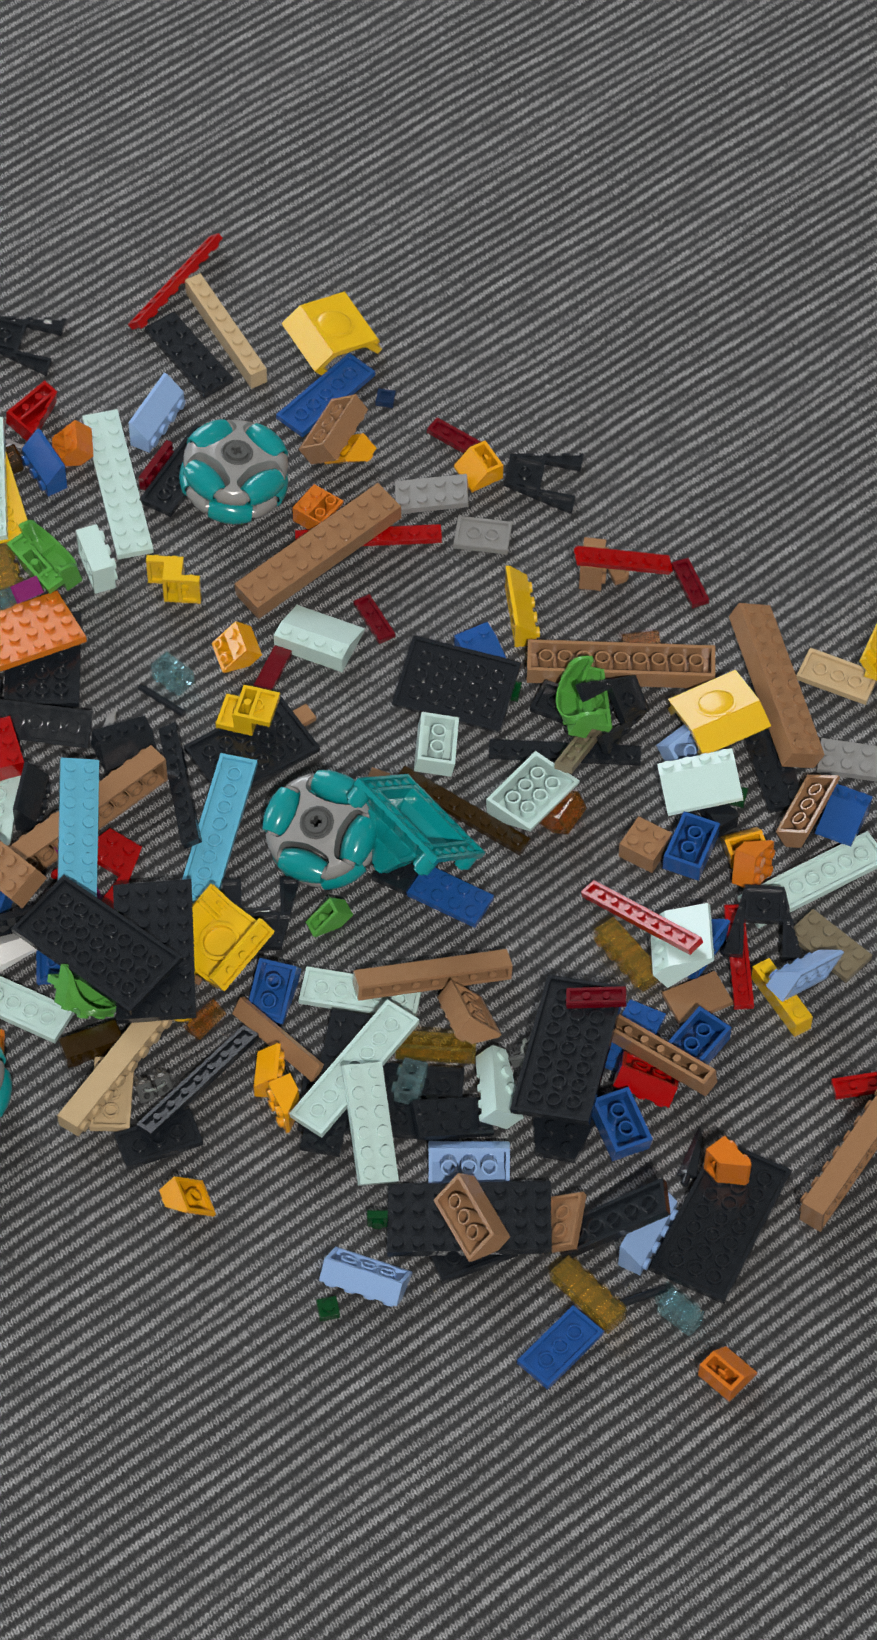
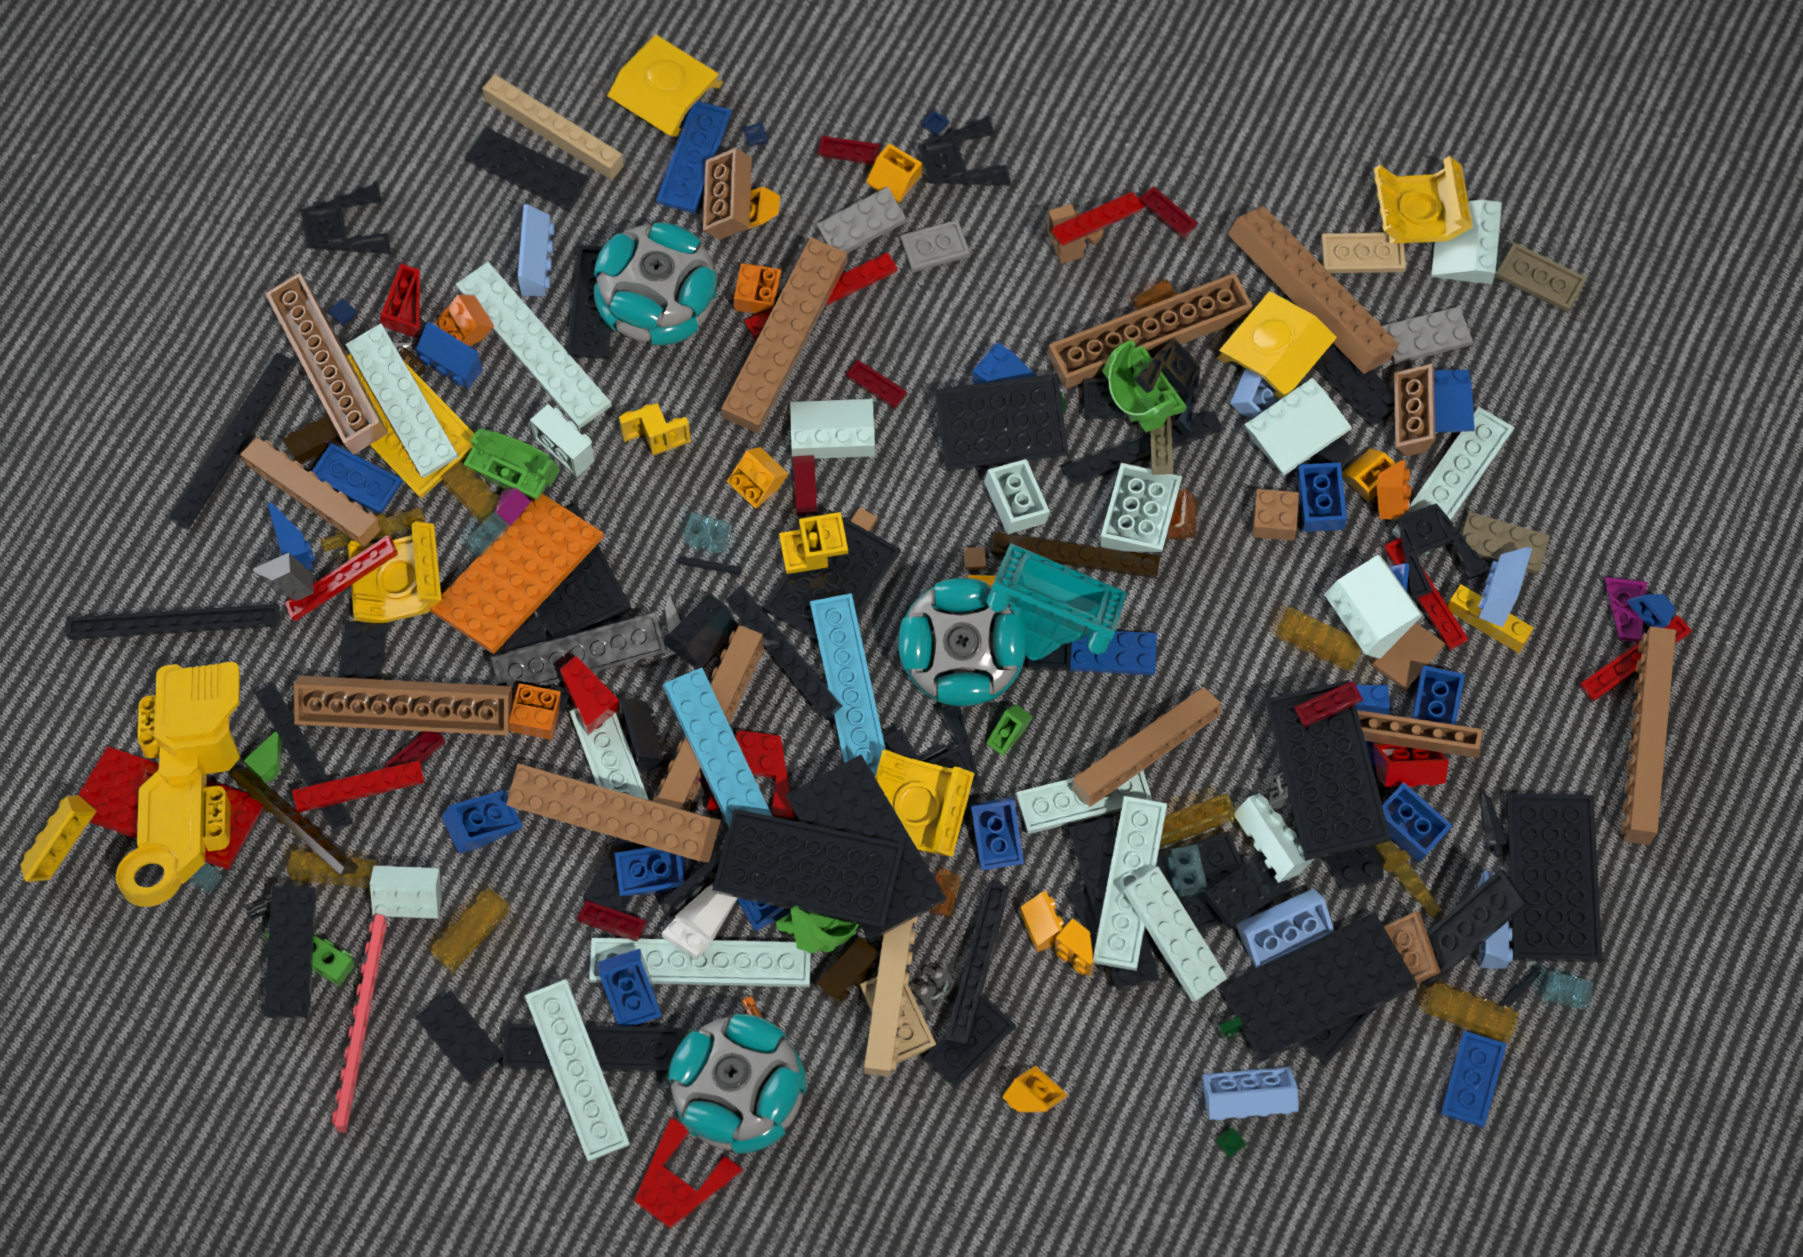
camera: 25 degrees left, 10 degrees up
(155, 465) = (564, 308): dark red plate -> none
(175, 281) = (469, 92): red plate -> none
(273, 1034) = (1032, 883): medium nougat tile -> none
(467, 1014) = (1206, 775): medium nougat slope -> none
(471, 1217) = (1326, 988): medium nougat slope -> none
(520, 607) = (1018, 312): yellow slope -> none
(536, 444) = (935, 123): none -> dark blue tile
(593, 1152) = (1398, 862): none -> clear yellow piece
(642, 917) = (1322, 597): plate -> none
(726, 1372) = (1643, 1032): orange slope -> none
(727, 1163) = (1538, 818): orange slope -> none

